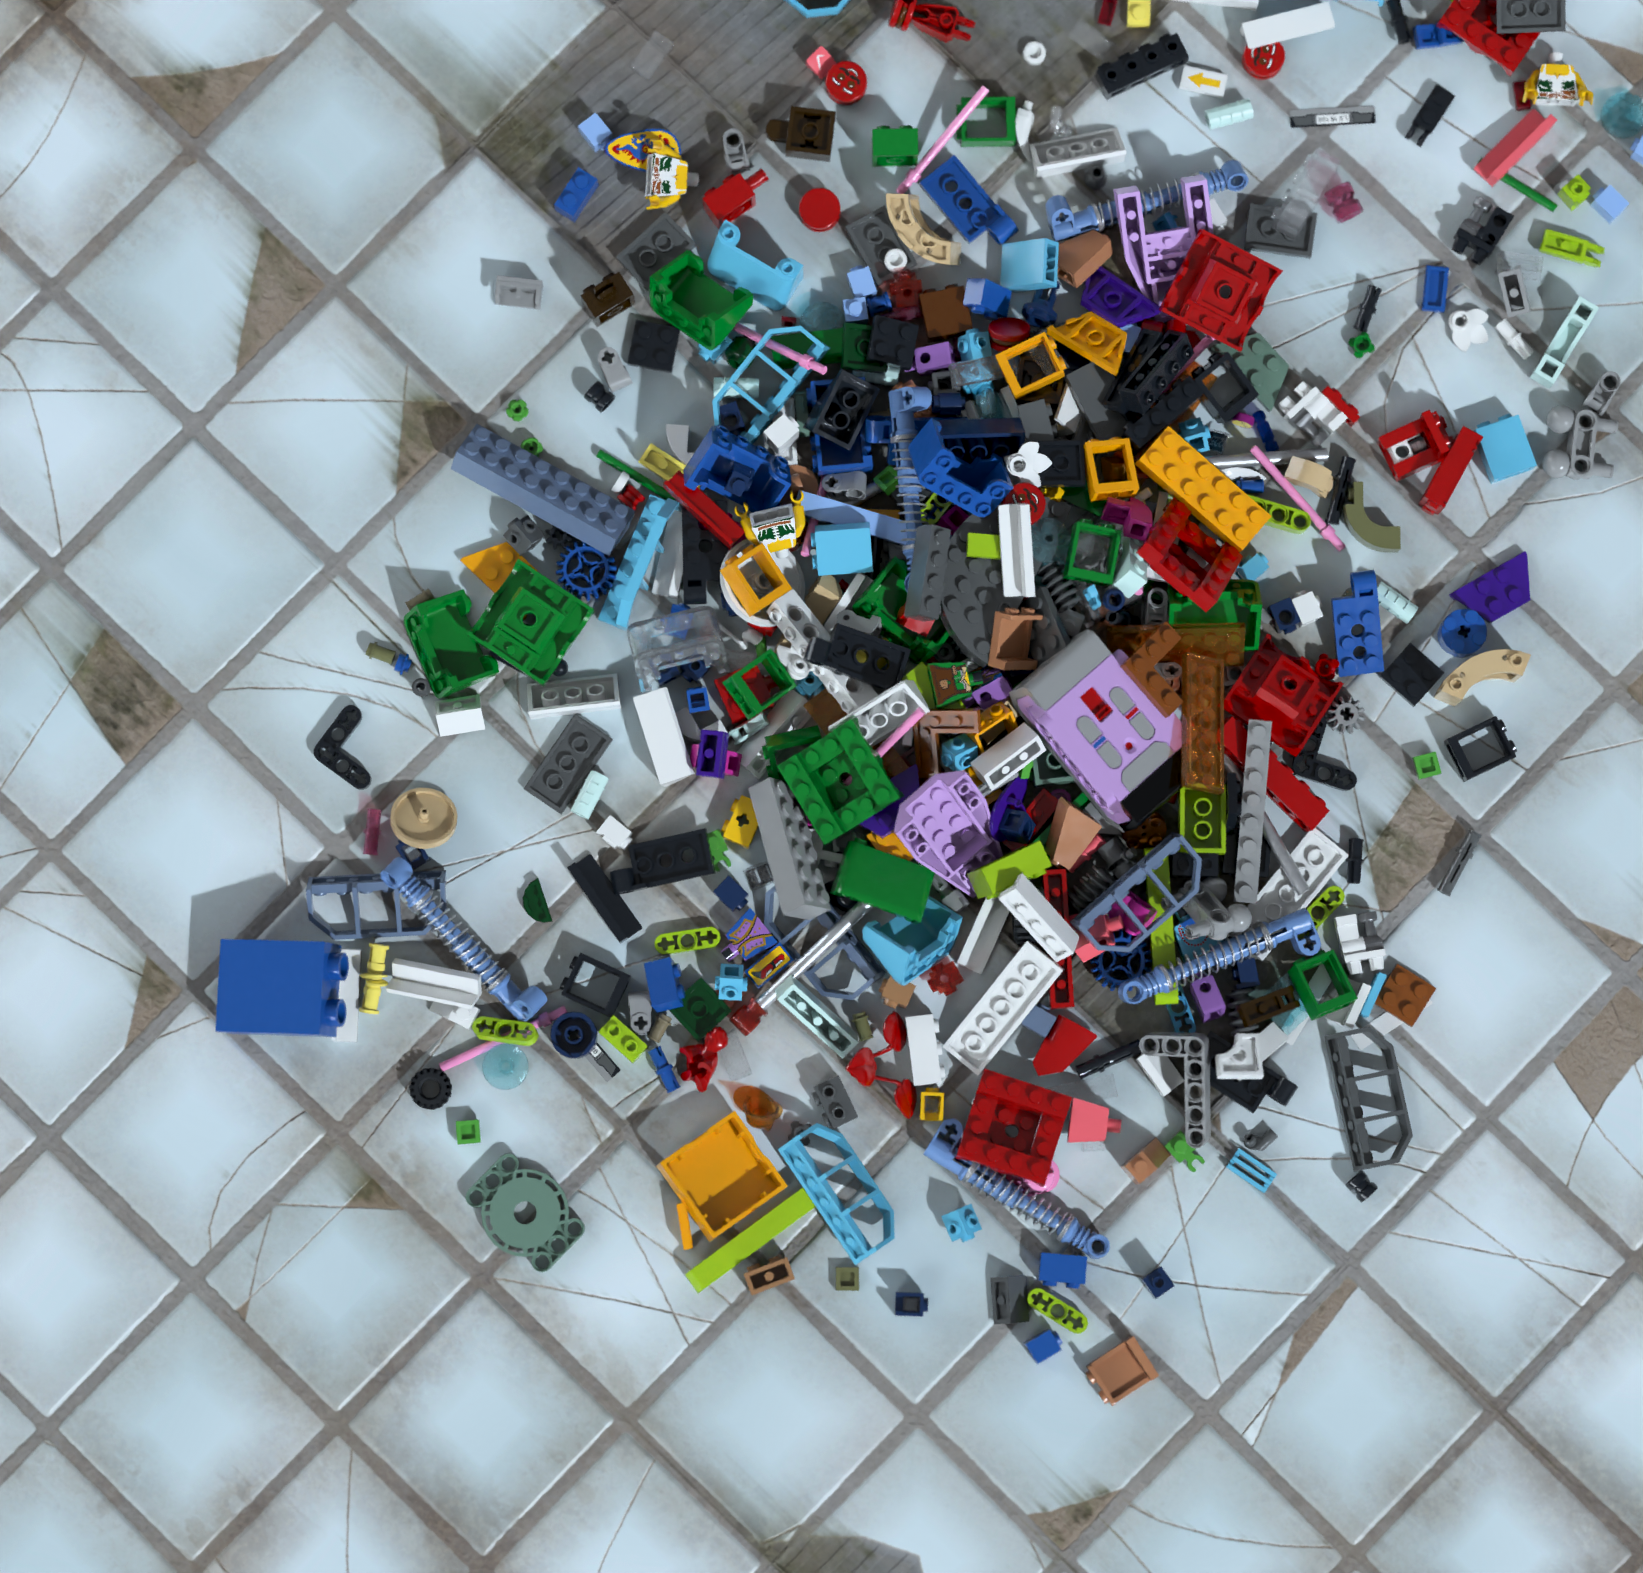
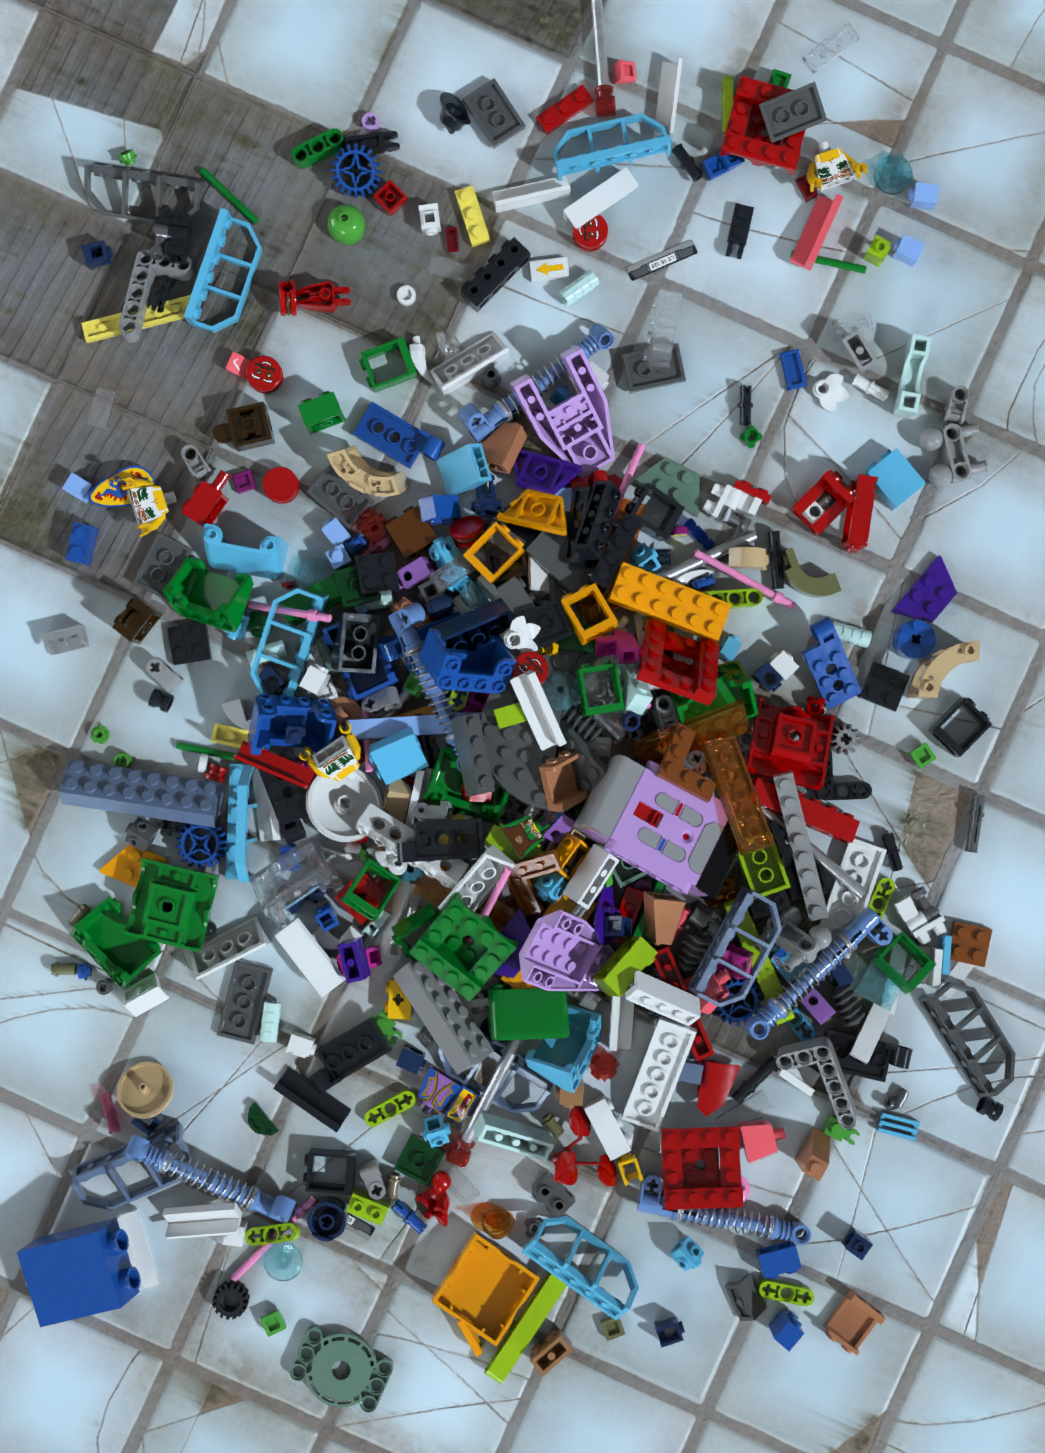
camera: 15 degrees left, 5 degrees up
(335, 746) = (55, 1056): black beam -> none
(373, 978) = (154, 1230): light yellow piece -> none
(664, 984) = (384, 1152): blue brick -> none
(742, 588) = (326, 818): light orange window -> none
(779, 191) = (244, 481): none -> magenta tile
(895, 260) = (356, 504): white tile -> none
(913, 175) = (346, 429): bright pink bar -> none
(1092, 597) = (611, 723): medium azure tile -> none
(1204, 271) = (605, 441): red piece -> none
(1242, 1060) = (862, 1048): white tile -> none
(1267, 1006) = (868, 997): dark brown plate -> none
(1343, 202) = (696, 326): clear pink wheel -> none
(1479, 237) = (813, 315): black hips -> none
(1569, 248) = (888, 297): lime hinge -> none

